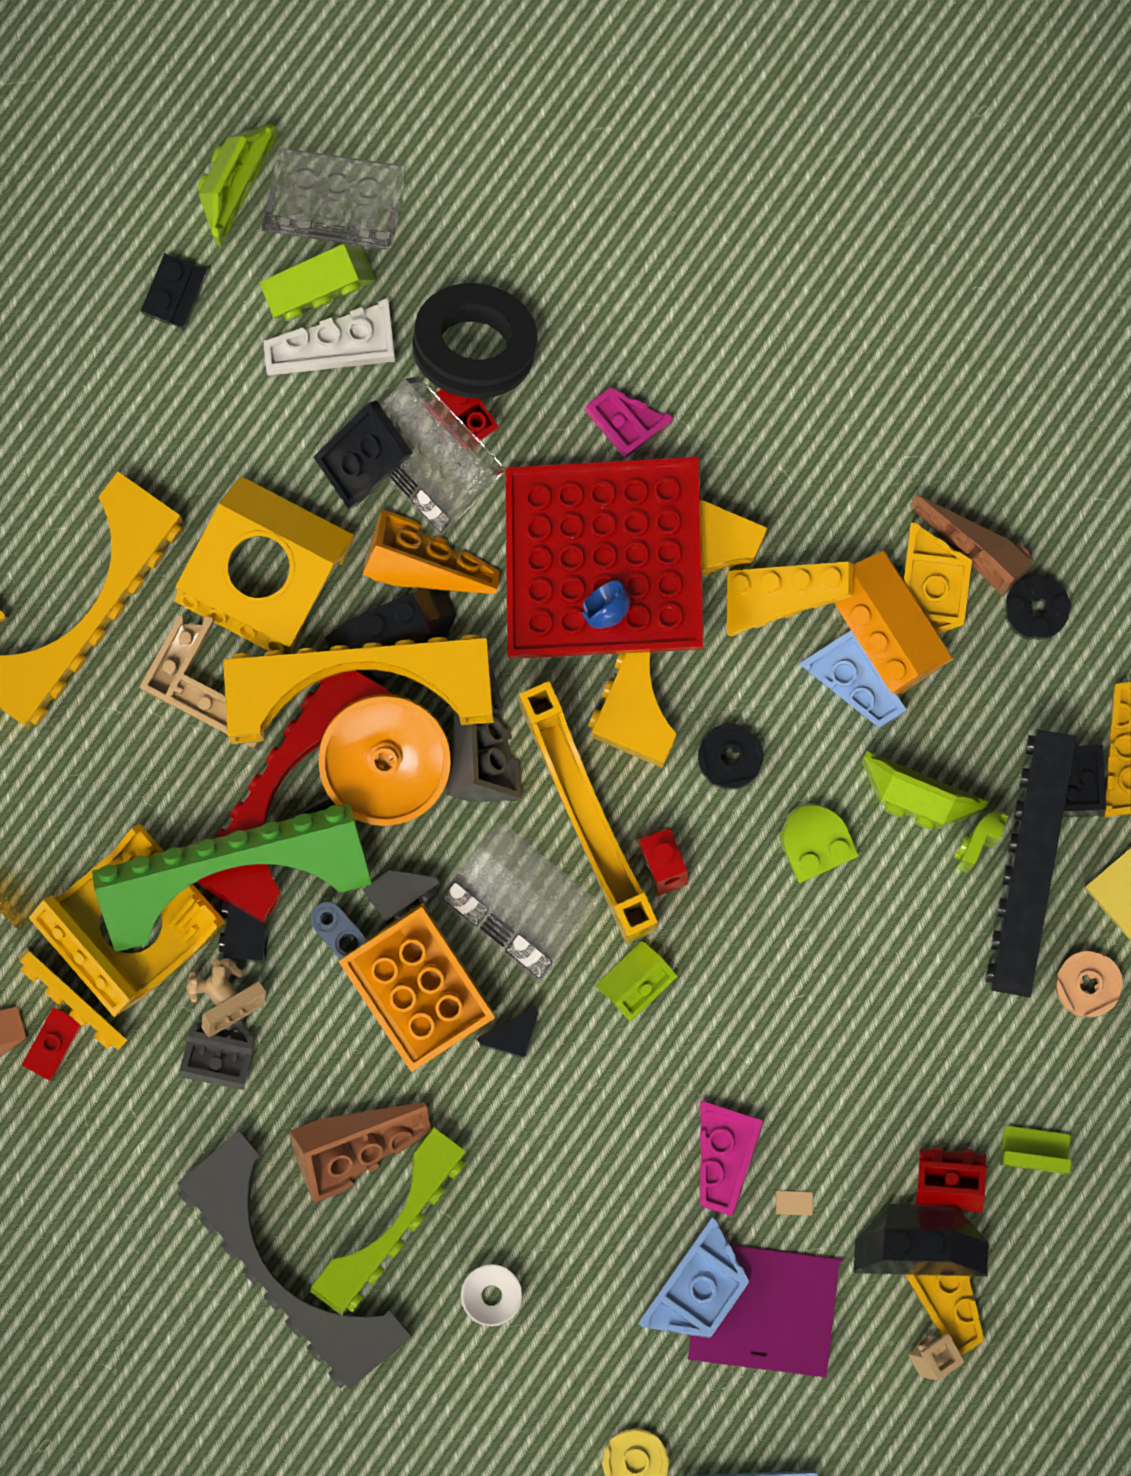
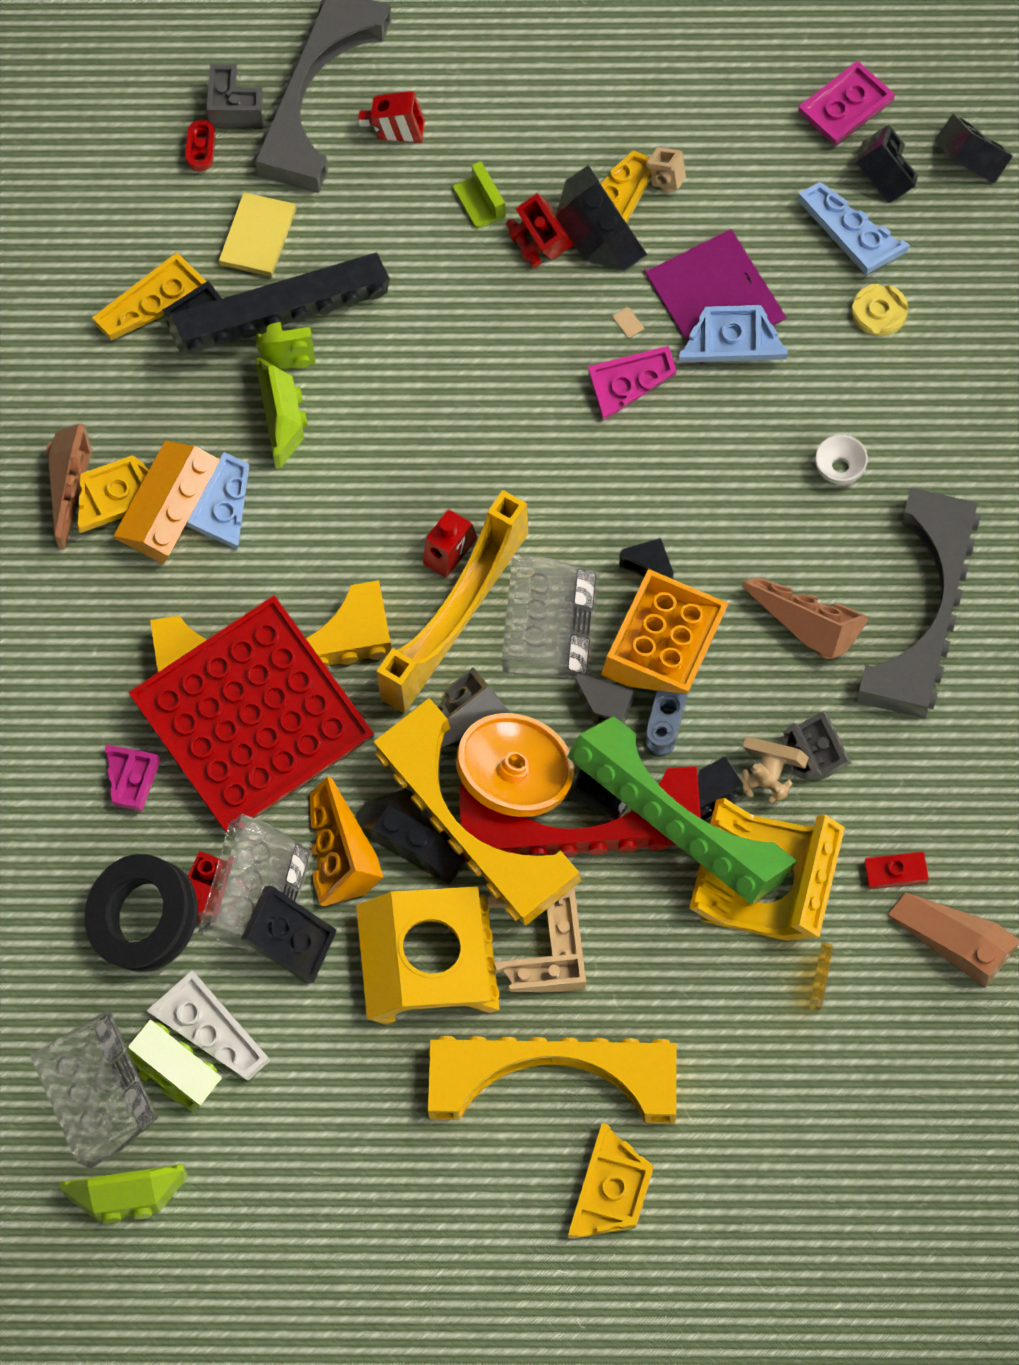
camera: 120 degrees left, 15 degrees down
(59, 992) = (855, 877): yellow wing -> none
(174, 291) = (248, 1179): black plate -> none
(346, 1276) = (784, 553): lime arch -> none
(606, 605) = (289, 676): blue hair -> none
(636, 980) = (551, 510): lime panel -> none
(741, 741) = (340, 563): black plate -> none
(780, 592) = (194, 583): yellow wing -> none
(815, 841) = (362, 457): lime slope -> none
(1037, 589) = (88, 405): black plate -> none
(1095, 966) = (343, 245): light nougat plate -> none

